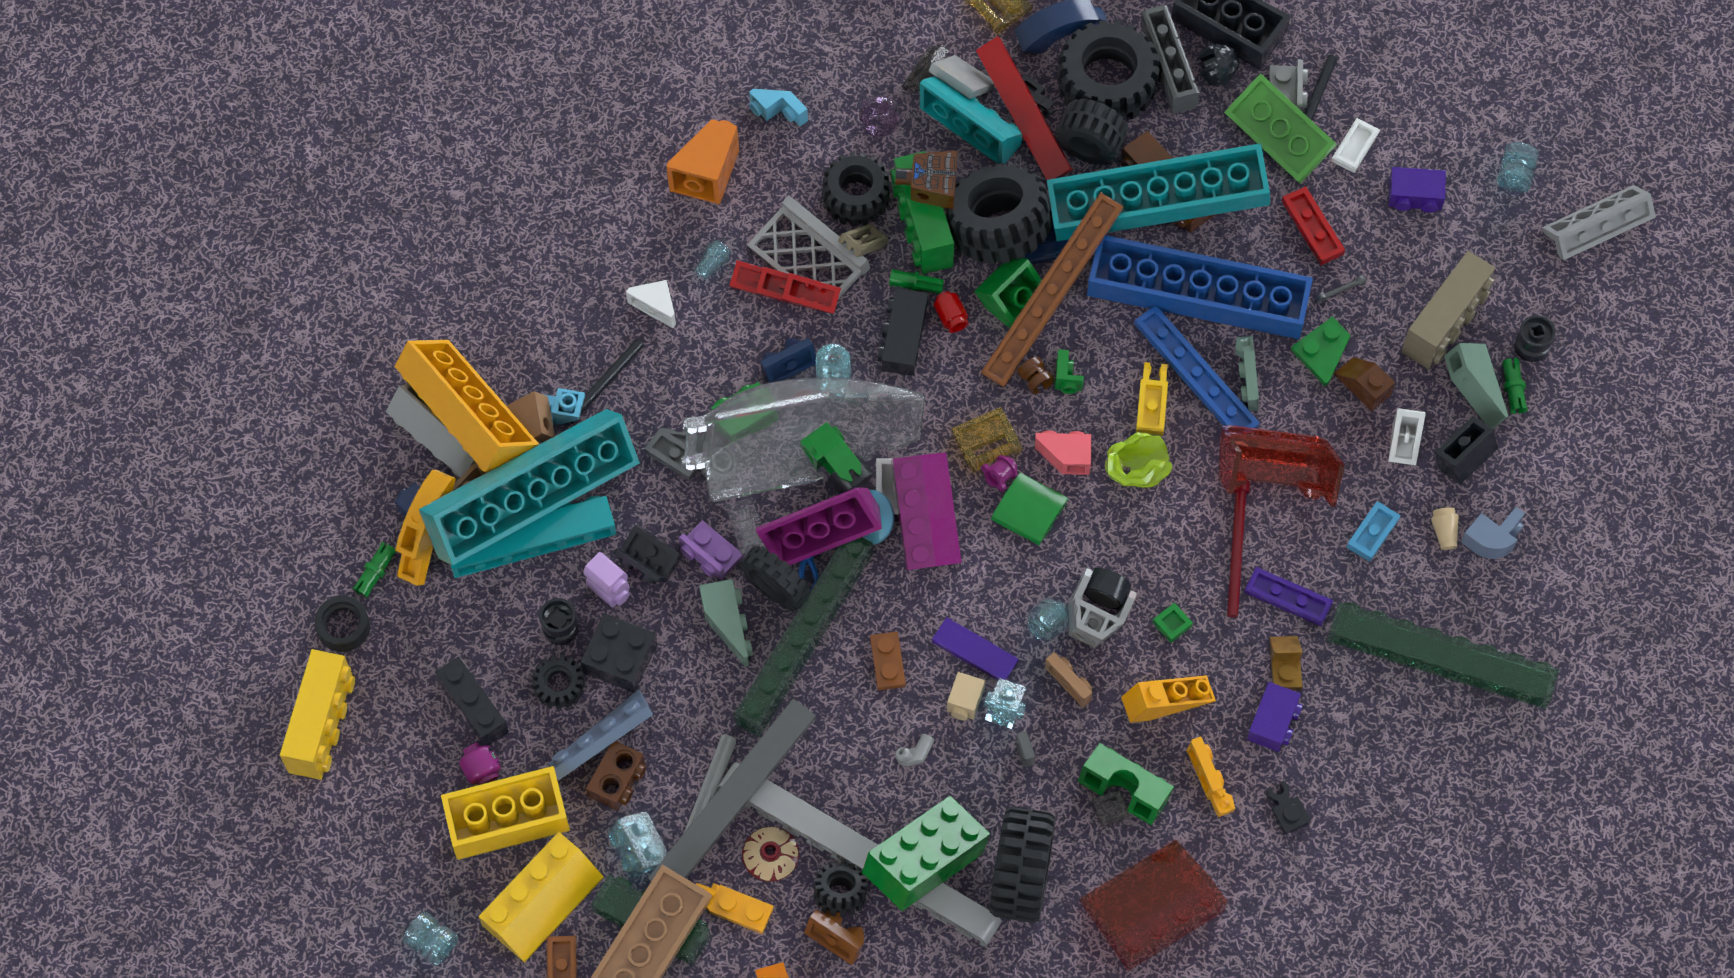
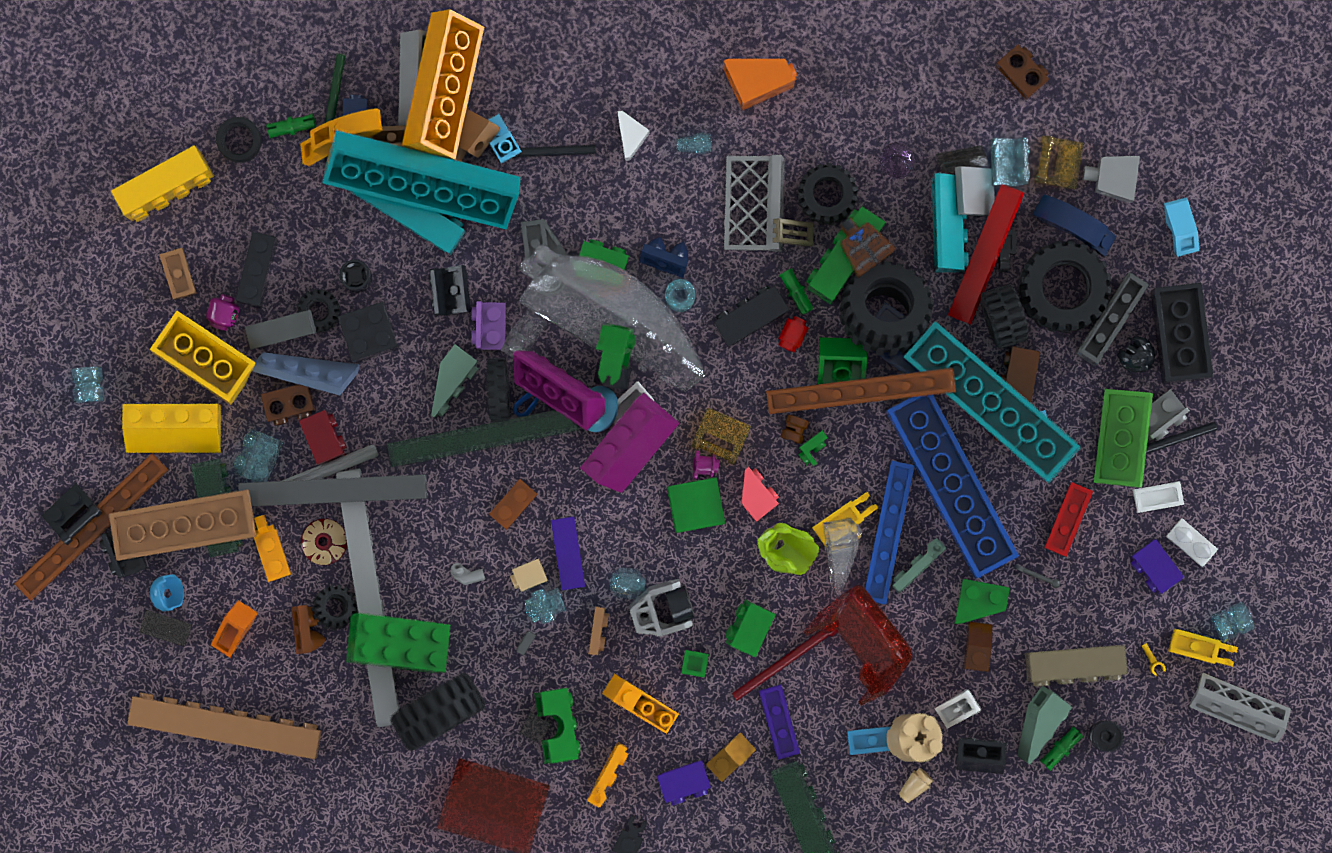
camera: 50 degrees right, 20 degrees up
(376, 506) = (335, 87): none -> dark green bar
(408, 776) = (178, 273): none -> medium nougat plate
(544, 725) = (280, 329): none -> dark grey tile
(607, 580) = (407, 282): lavender brick -> none
(675, 769) = (322, 437): none -> dark red brick
(770, 102) = (843, 78): medium azure slope -> none
(785, 287) = (715, 210): red slope -> none
(962, 33) = (1010, 161): none -> clear light blue bracket
(1178, 417) = (841, 549): none -> clear slope
(1181, 548) = (749, 628): none -> green brick
(1402, 489) = (914, 737): none -> tan brick
(1419, 149) = (1191, 542): none -> white tile
(1491, 540) = (931, 823): sand blue brick -> none
(1500, 258) = (1153, 662): none -> yellow hand
(1518, 211) = (1199, 647): none -> yellow hinge

